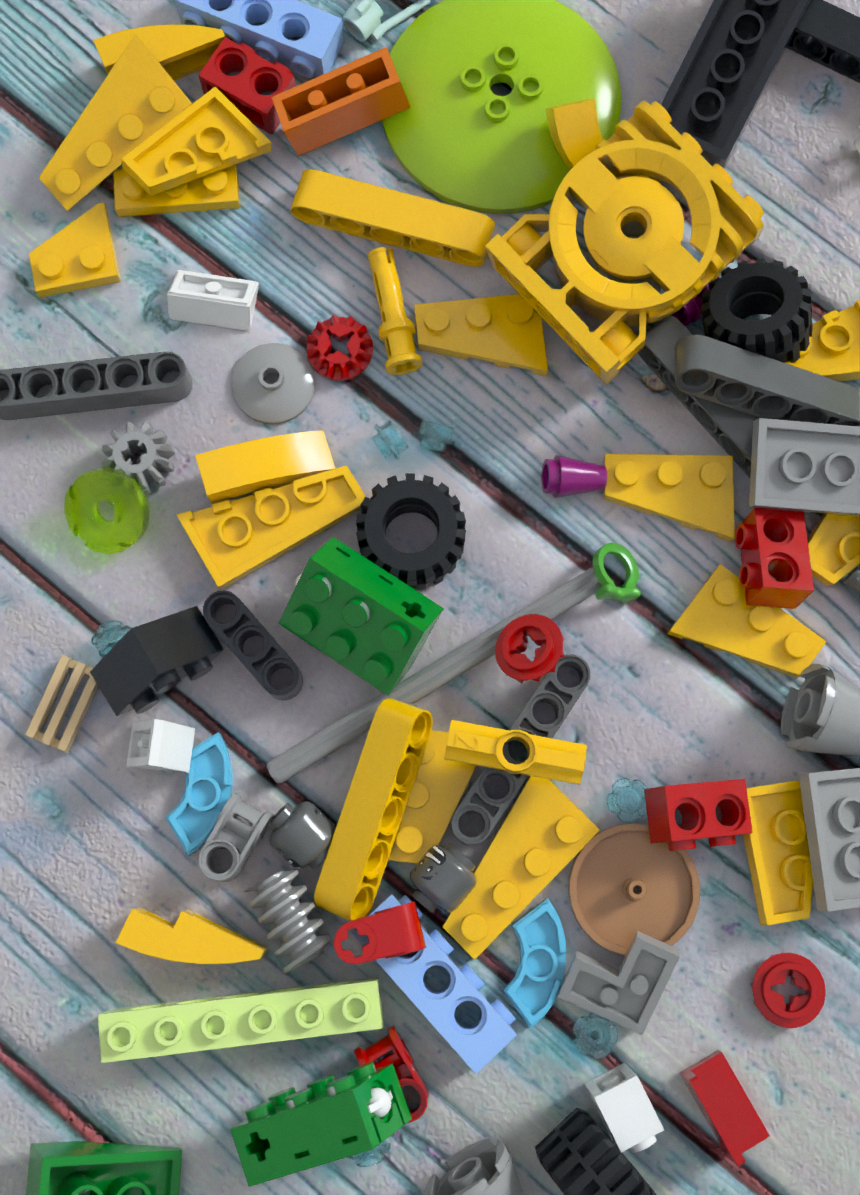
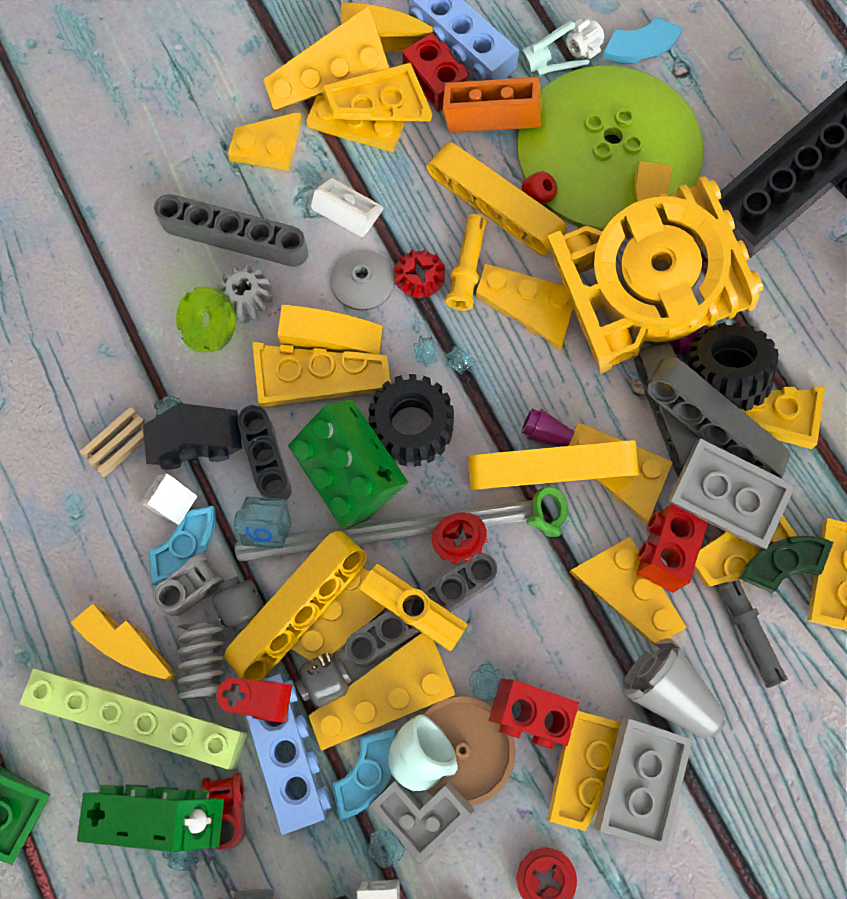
camera: 25 degrees right, 5 degrees down
(289, 727) = (263, 522): none -> clear light blue brick
(440, 184) = (540, 187): none -> red piece
(593, 915) = (421, 755): none -> light aqua piece
(599, 518) = (553, 465): none -> yellow beam

